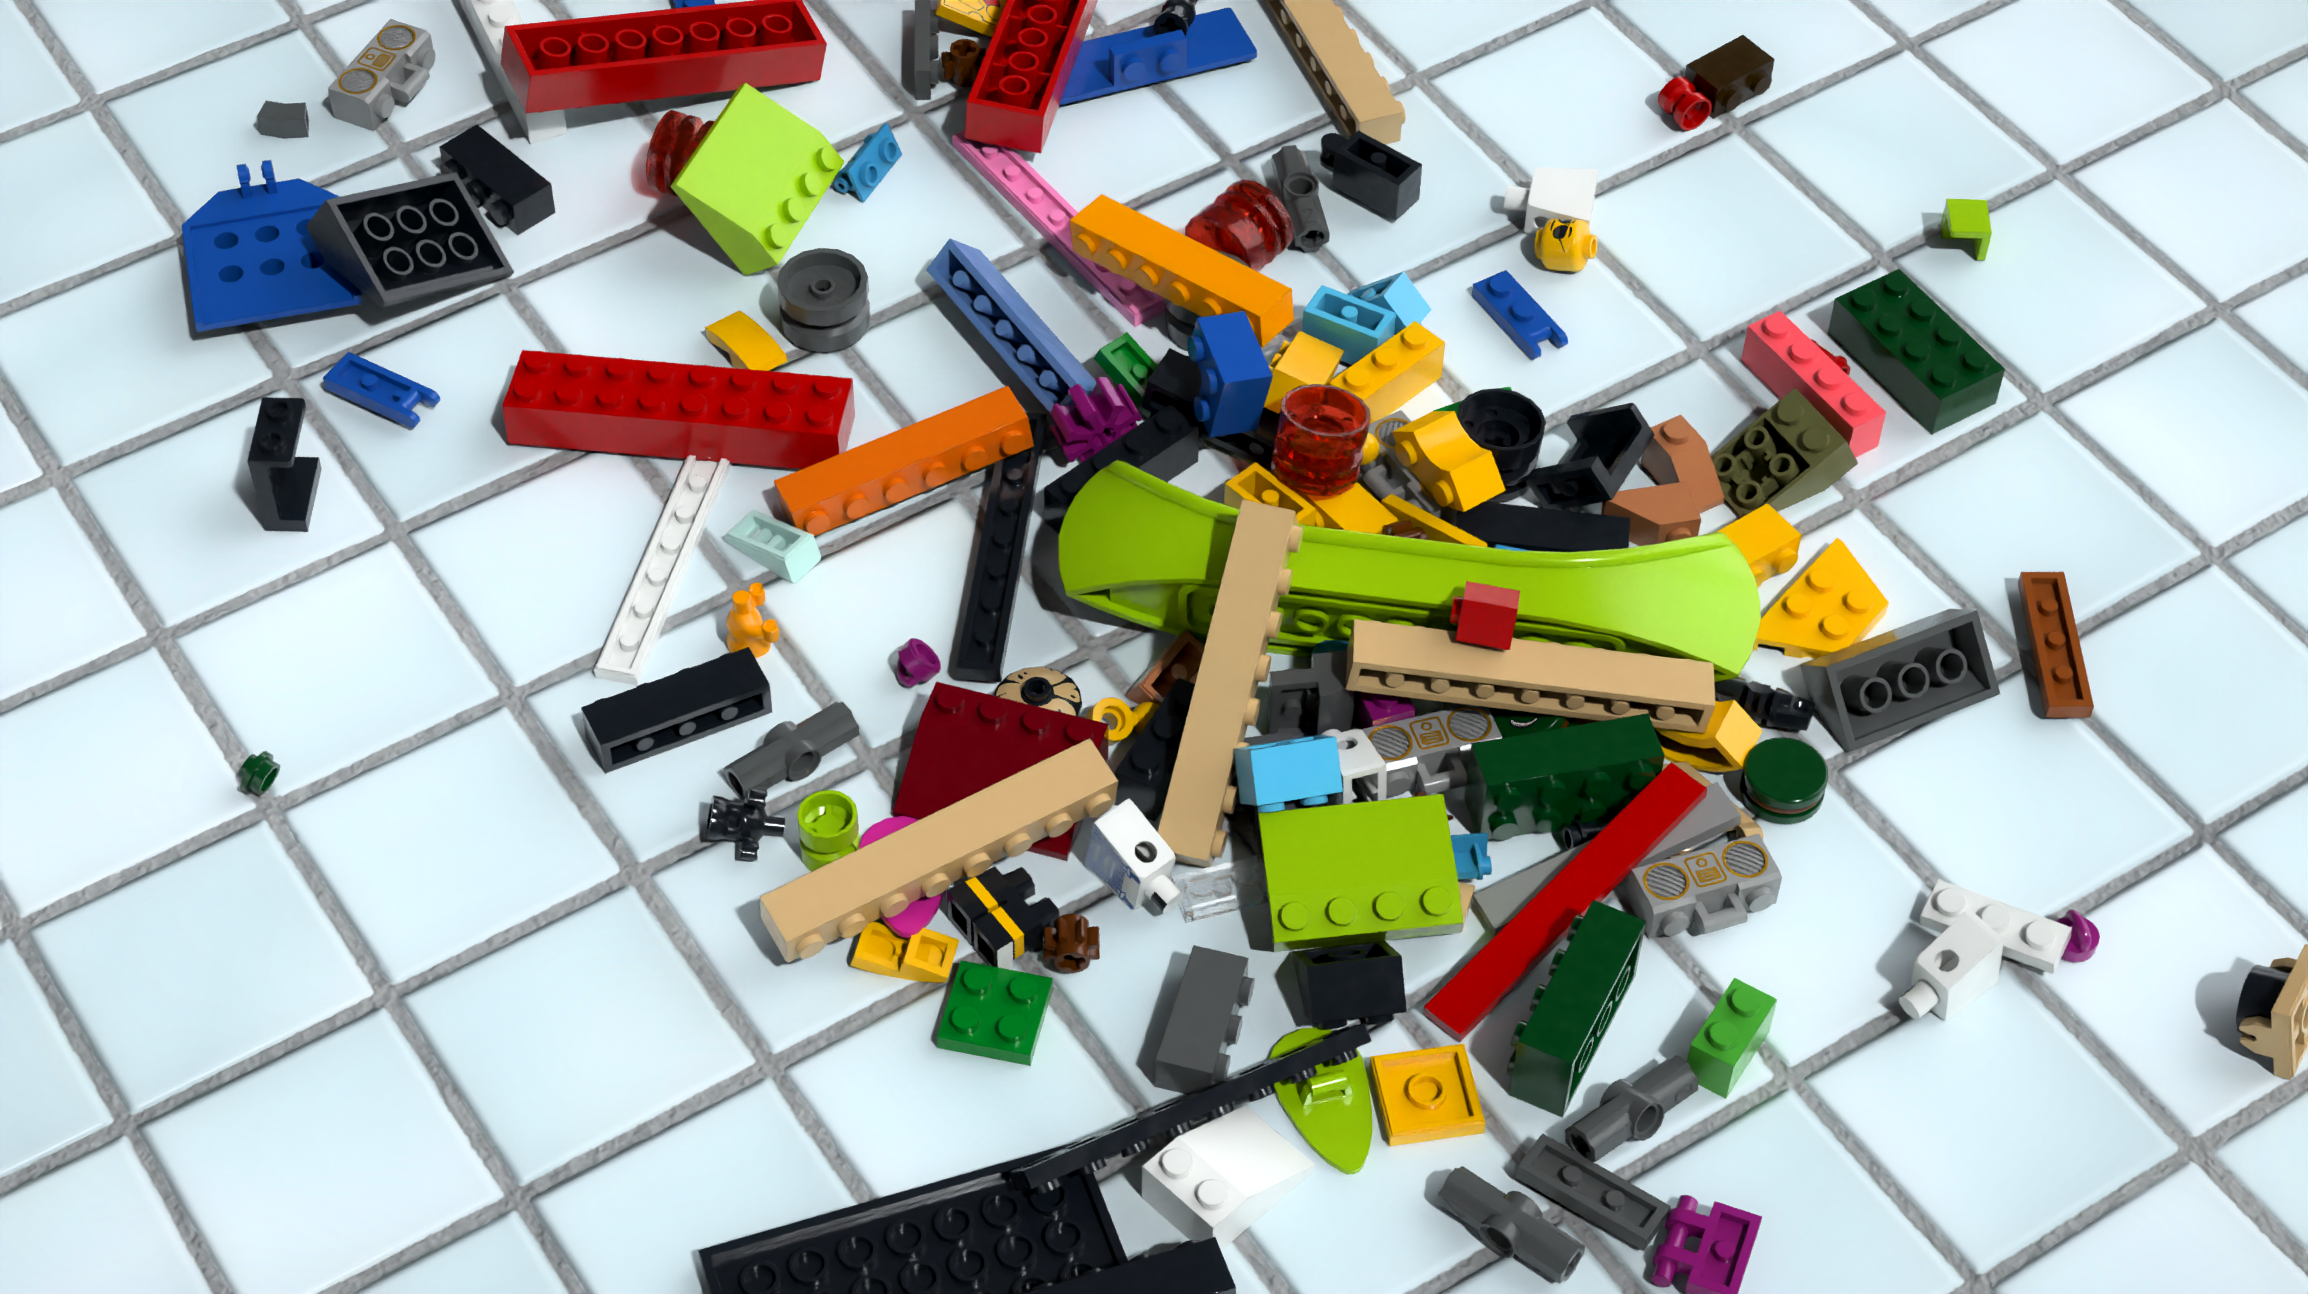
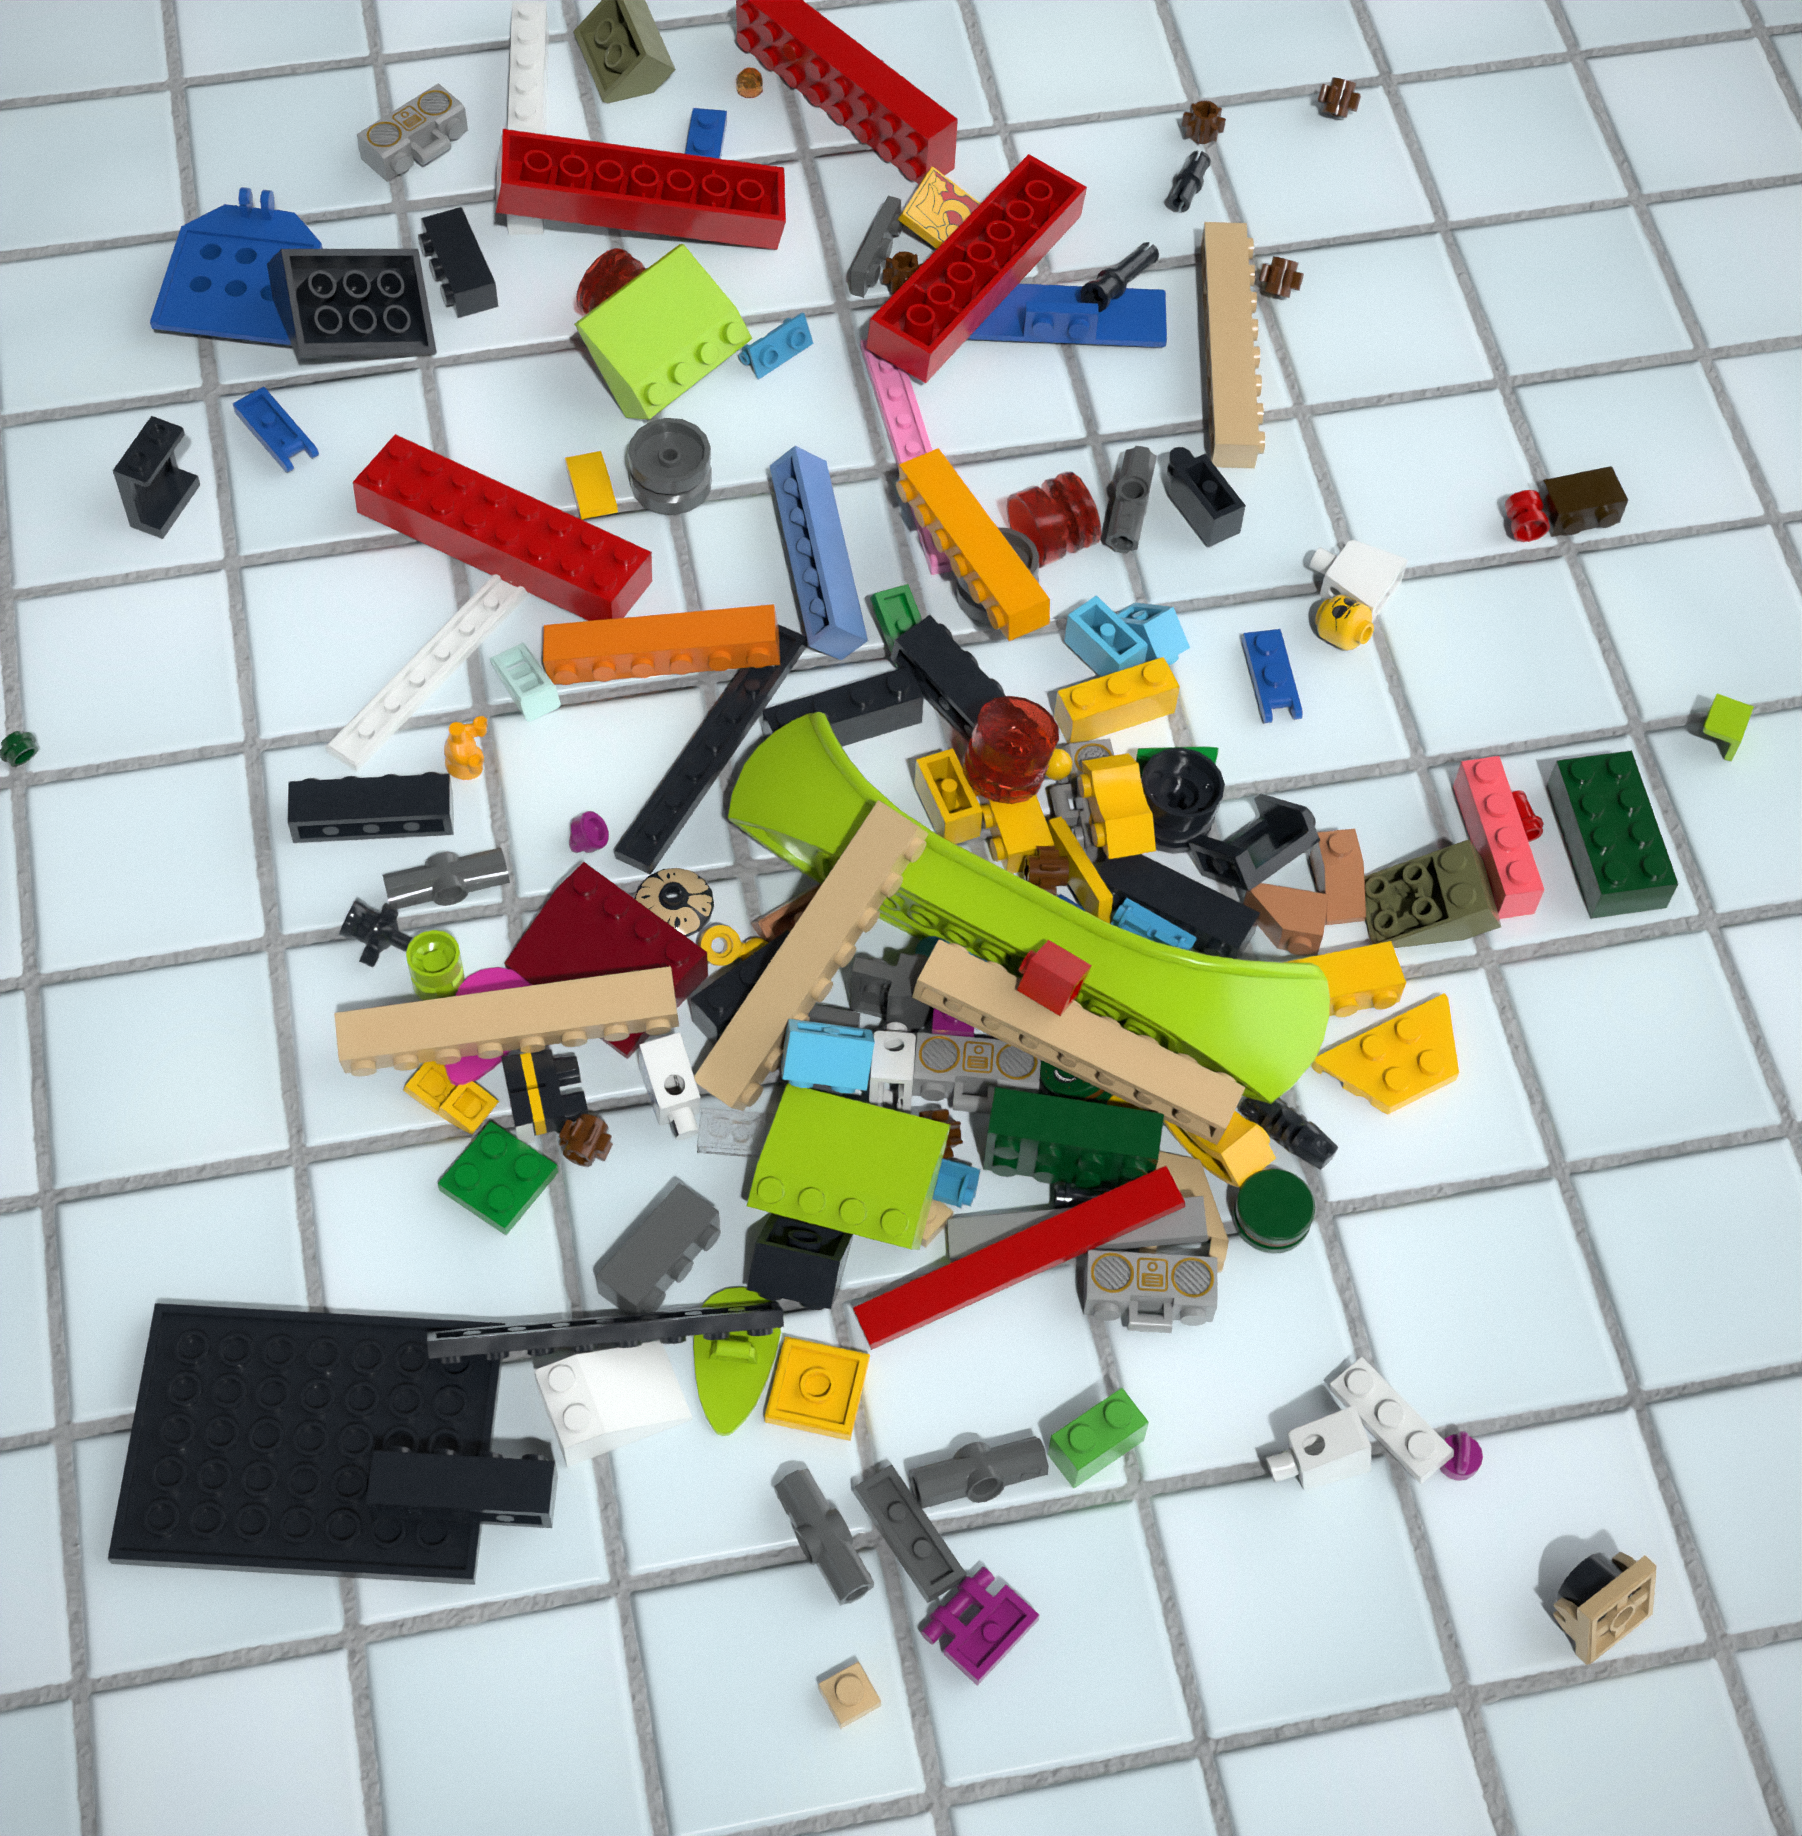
camera: 20 degrees right, 10 degrees up
(284, 120) = (316, 150): dark grey piece -> none
(1094, 419) = (838, 659): magenta gear -> none
(1232, 374) = (959, 660): blue brick -> none
(1299, 364) = (1039, 672): yellow brick -> none
(1575, 1007) = (973, 1361): dark green brick -> none
(1902, 678) = (1431, 1151): dark grey slope -> none
(2055, 645) = (1590, 1167): dark orange plate -> none

